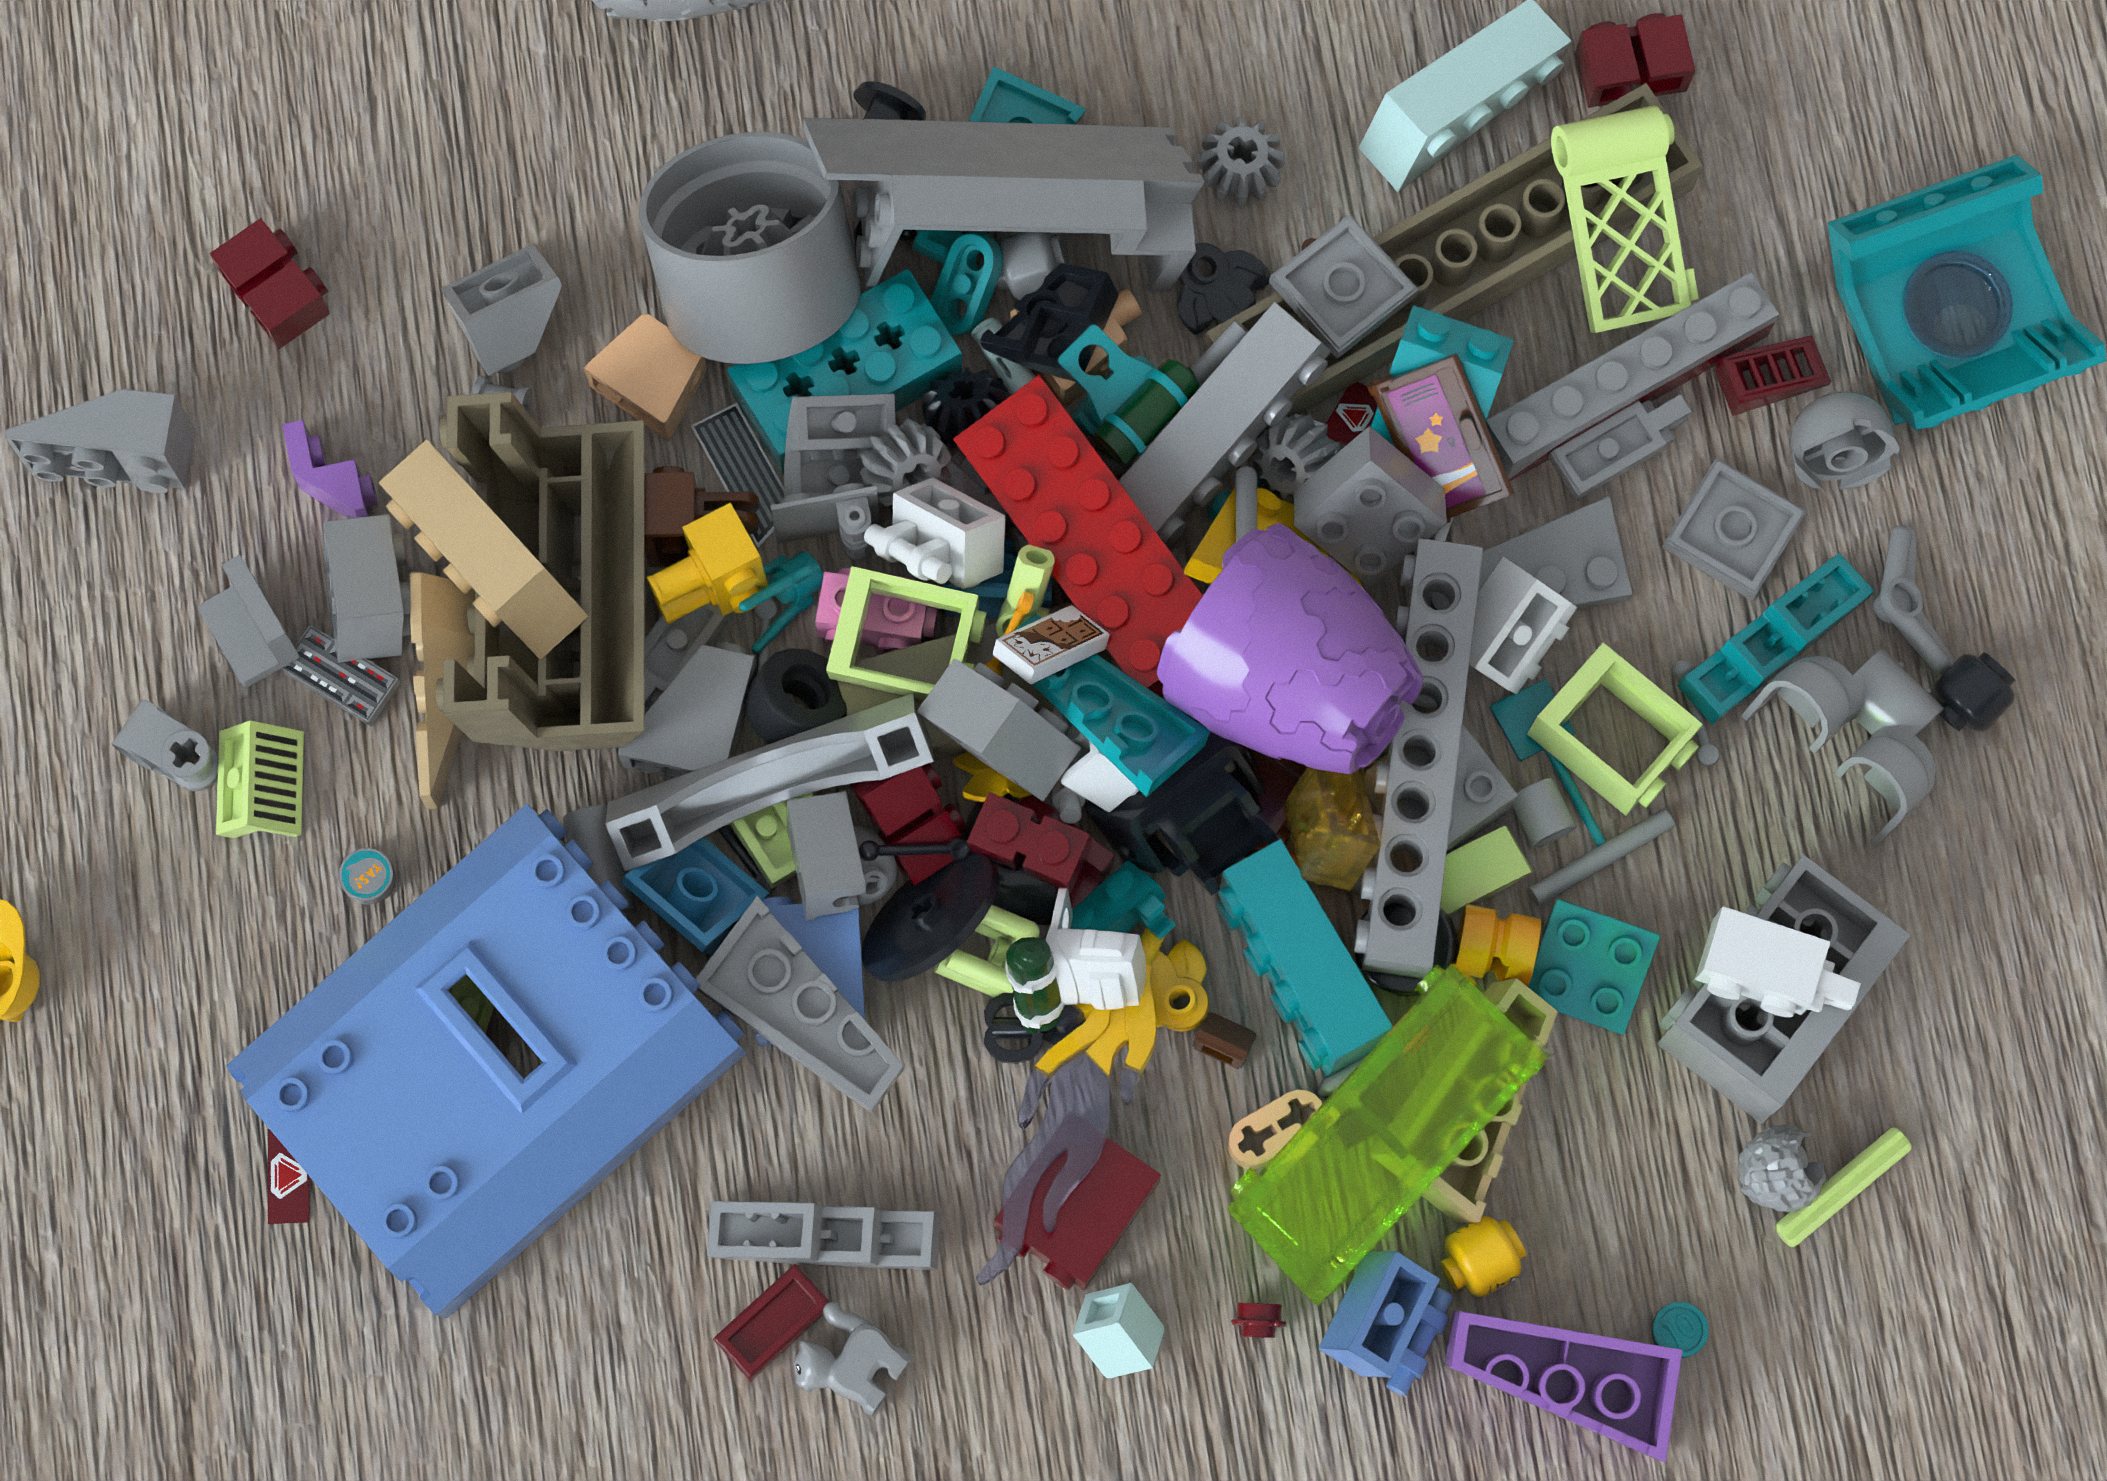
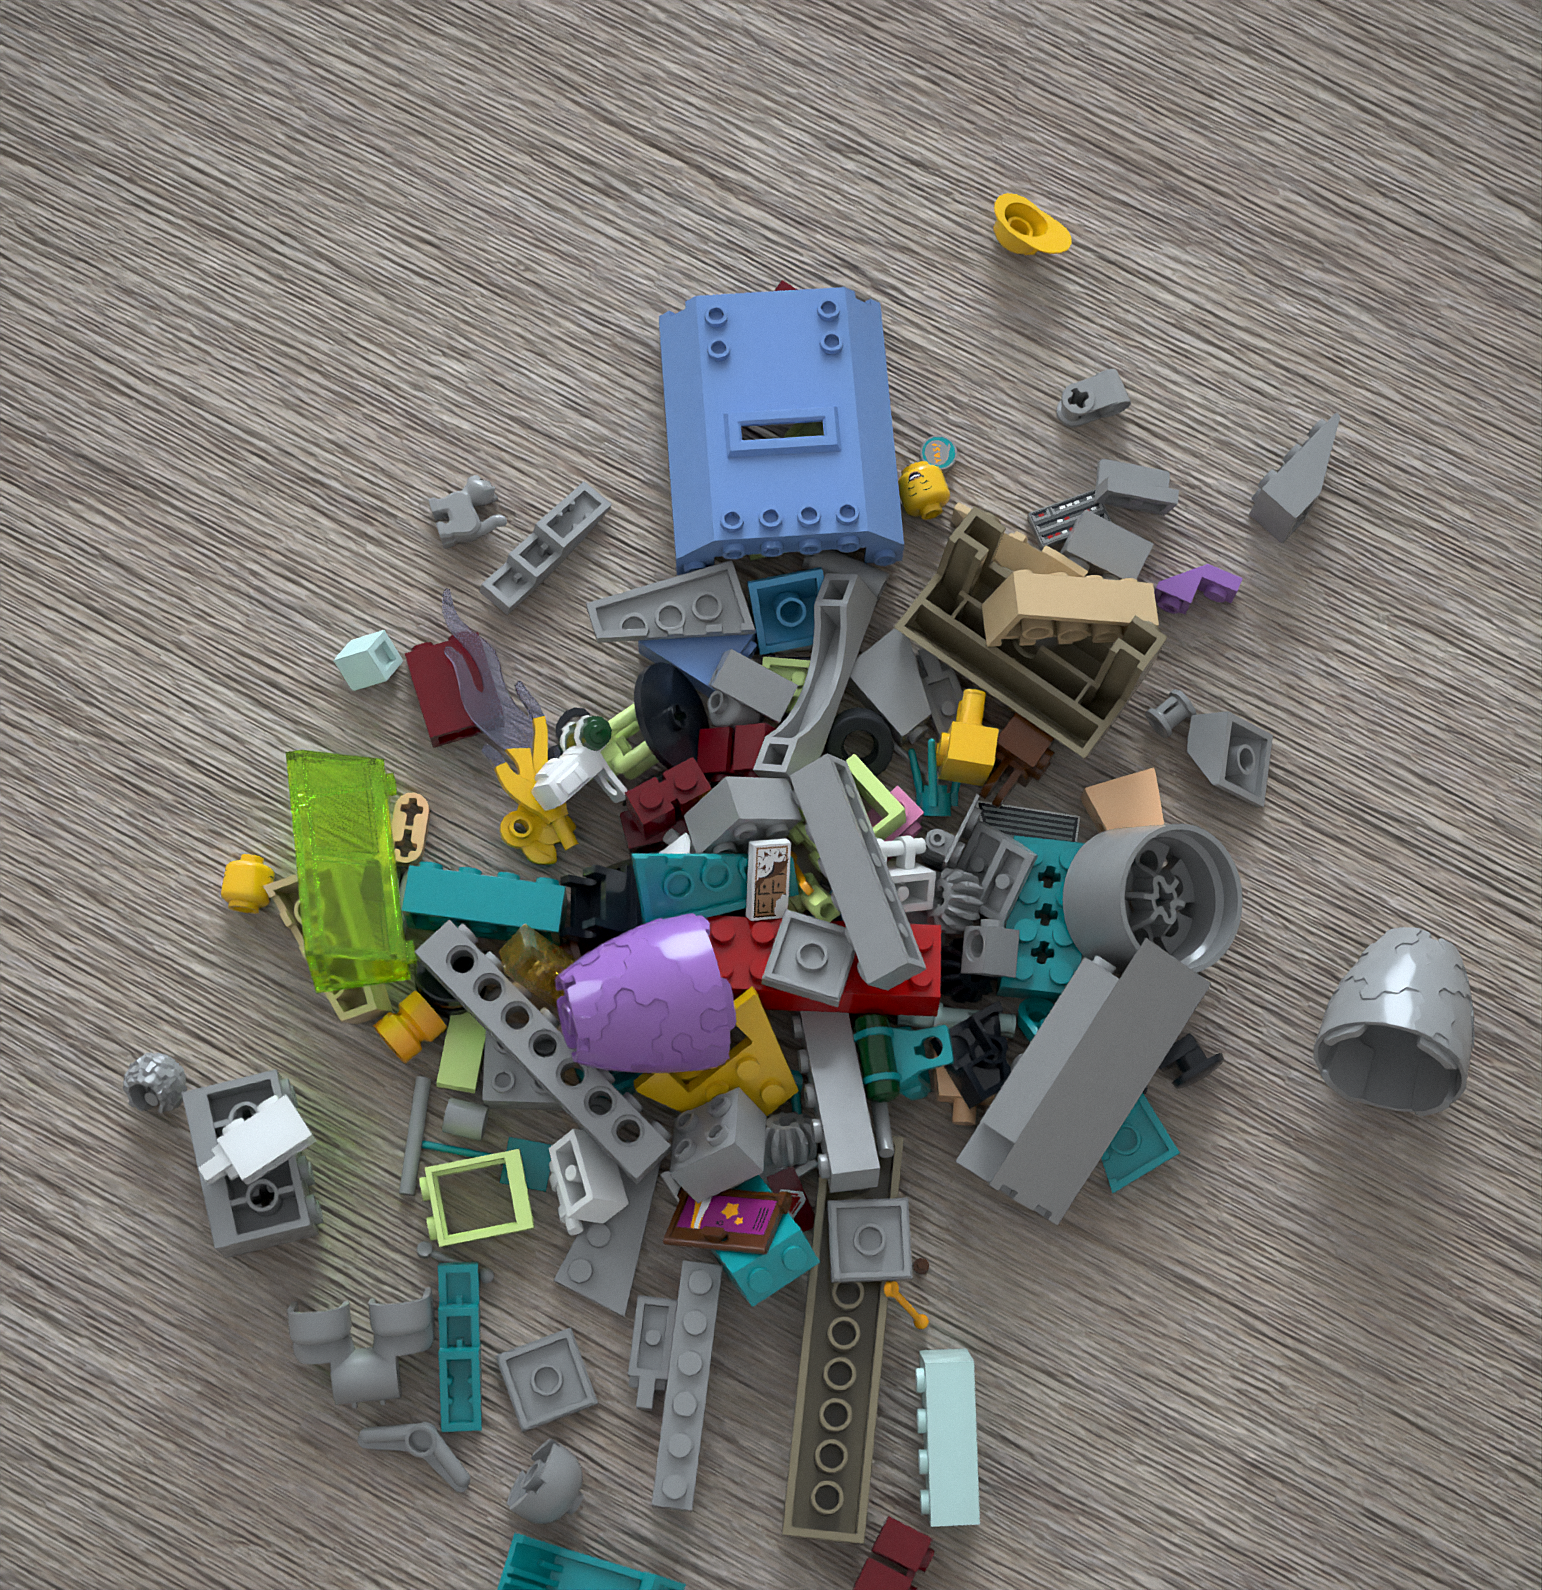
camera: 125 degrees right, 0 degrees up
(259, 780) = (1036, 435): yellowish green panel -> none
(272, 284) = (1353, 640): dark red piece -> none
(427, 850) = (923, 490): none -> yellow head
(772, 1322) = (521, 490): dark red tile -> none
(935, 379) = (990, 949): none -> light grey brick
(956, 848) = (733, 709): black hinge -> none
(975, 545) = (856, 873): none -> light grey brick
(1104, 532) = (809, 959): none -> light grey tile
(1122, 902) = (602, 827): teal plate -> none
(1224, 292) = (929, 1186): black plate -> none
(1224, 1040) = (481, 839): reddish brown slope -> none
(1246, 145) = (1018, 1270): light grey gear -> none
(1246, 501) = (766, 1062): light grey bar -> none
(1258, 1319) = (314, 737): dark red plate -> none
(1369, 207) = (891, 1289): none -> light orange hinge
(1388, 1320) = (253, 801): medium blue brick -> none
(1586, 1378) = (145, 875): medium lavender wedge -> none
(1592, 965) = (357, 1075): teal hinge -> none
(1612, 149) = (826, 1479): yellowish green piece -> none
(1680, 1327) = (121, 965): teal piece -> none
(1735, 389) = (635, 1452): dark red slope -> none
(1844, 1186) = (119, 1122): yellowish green axle -> none
(1974, 692) = (332, 1436): black head -> none

